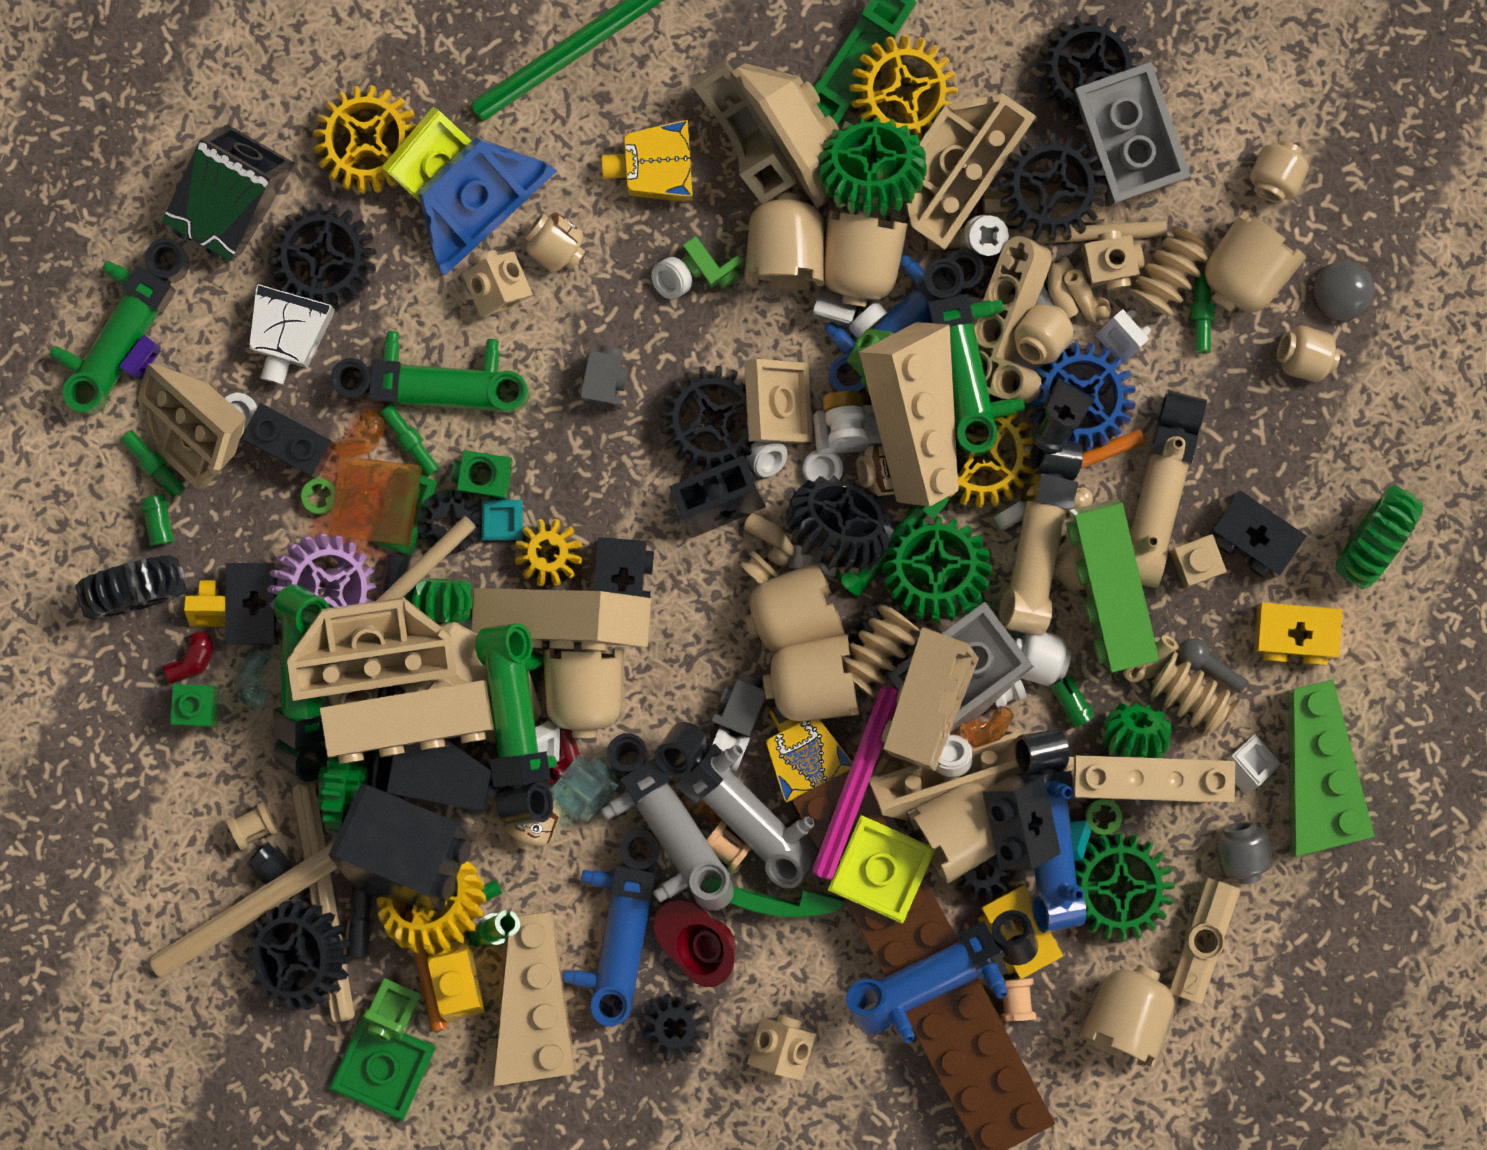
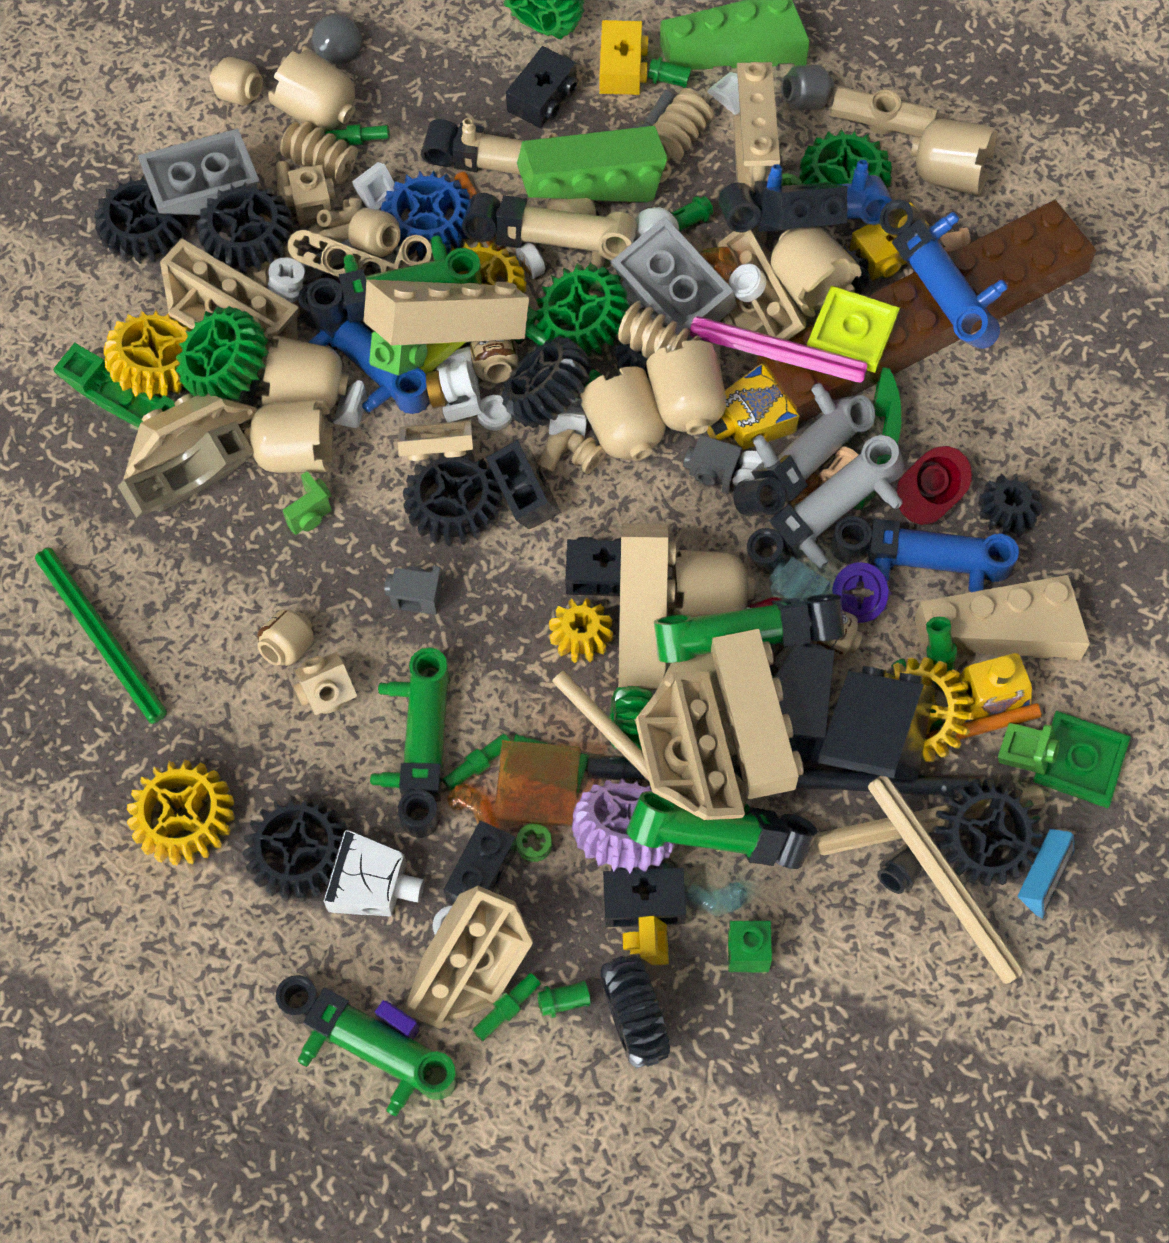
camera: 90 degrees left, 20 degrees down
(194, 661) = (703, 954): dark red arm -> none
(226, 192) = (232, 942): slope -> none
(252, 826) = (863, 888): tan bush -> none
(258, 1012) = (1047, 871): none -> dark azure slope
(338, 788) = (823, 794): green gear -> none
(425, 152) = (206, 743): neon yellow tile -> none
(437, 507) = (540, 727): black gear -> none
(476, 196) = (242, 708): blue wing -> none
(501, 474) = (509, 675): green brick -> none
(502, 520) = (543, 673): teal tile -> none
(568, 843) = (851, 579): none -> dark purple gear
(654, 163) = (213, 553): yellow torso -> none
(671, 278) = (321, 537): white tile -> none
(767, 458) = (483, 448): white tile -> none
(782, 1047) = (1025, 423): tan brick -> none
(867, 319) = (360, 372): white tile -> none
(929, 699) = (700, 285): tan wedge -> none
(1060, 416) = (445, 207): black piece -> none
(1136, 732) = (715, 159): green gear -> none
(1198, 561) = (565, 118): tan brick -> none
(1276, 688) = (668, 73): none -> green pin
(1308, 353) = (389, 57): tan head -> none

